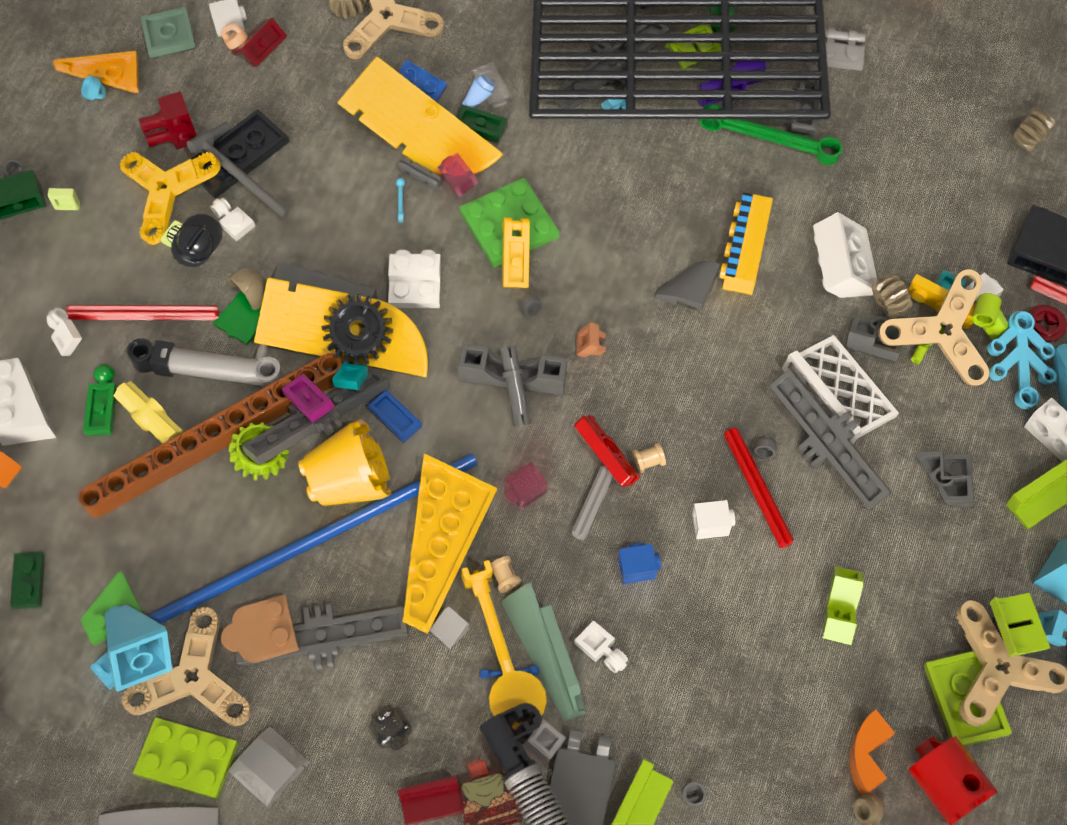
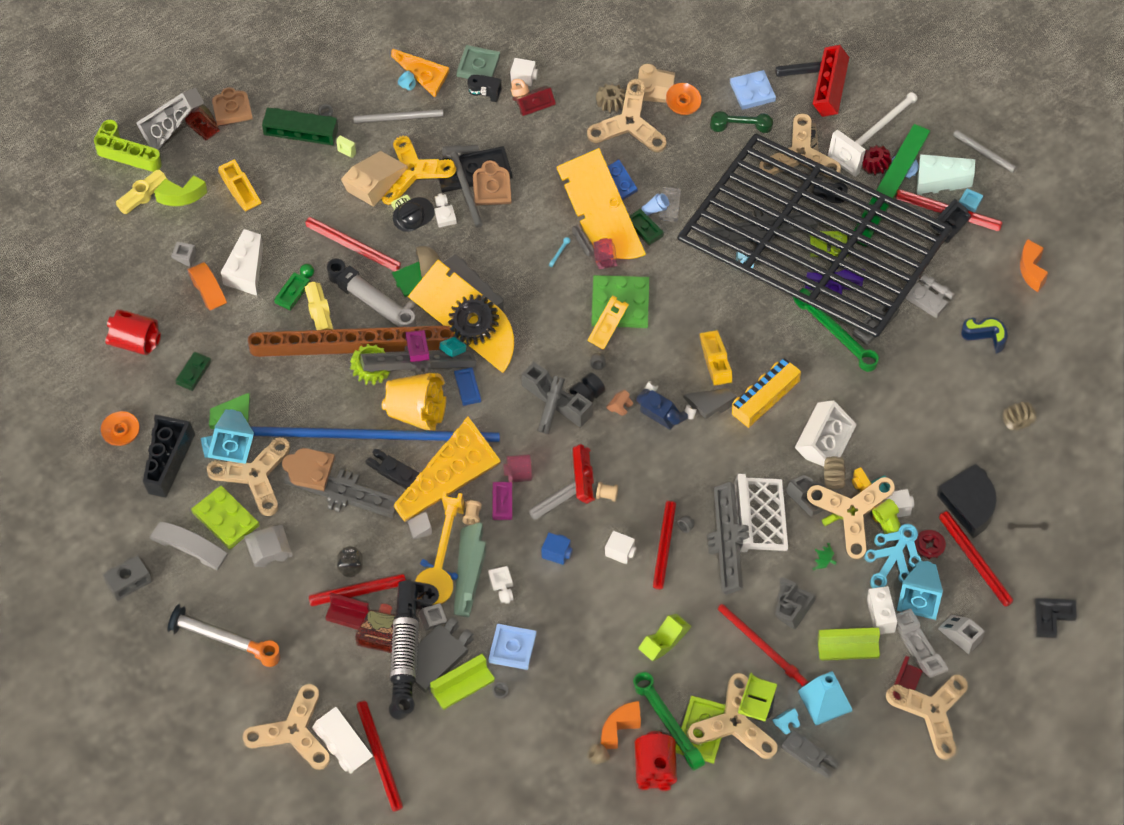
camera: 30 degrees right, 5 degrees down
(55, 716) = (166, 453): none -> black wedge
(65, 334) = (297, 235): white plate -> none
(105, 135) = (398, 116): none -> light grey piece
(121, 219) = (373, 177): none -> tan slope
(173, 121) = (441, 129): dark red brick -> none
(191, 53) = (485, 86): none -> black leg
(272, 160) = (491, 185): none -> medium nougat plate
(369, 571) = (392, 469): none -> black hinge
(414, 279) = (534, 308): white plate -> none
(422, 760) = (357, 589): none -> red axle
(531, 538) = (502, 501): none -> magenta plate
(545, 340) = (589, 387): none -> black wheel
(643, 322) = (662, 409): none -> dark blue torso
(663, 232) = (716, 357): none -> yellow slope
(668, 724) = (512, 646): none -> light blue plate
(929, 52) = (986, 329): none -> dark blue animal
(946, 401) = (825, 557): none -> green piece
(989, 743) = (690, 752): none -> green piece
(1009, 561) = (790, 670): none -> red bar

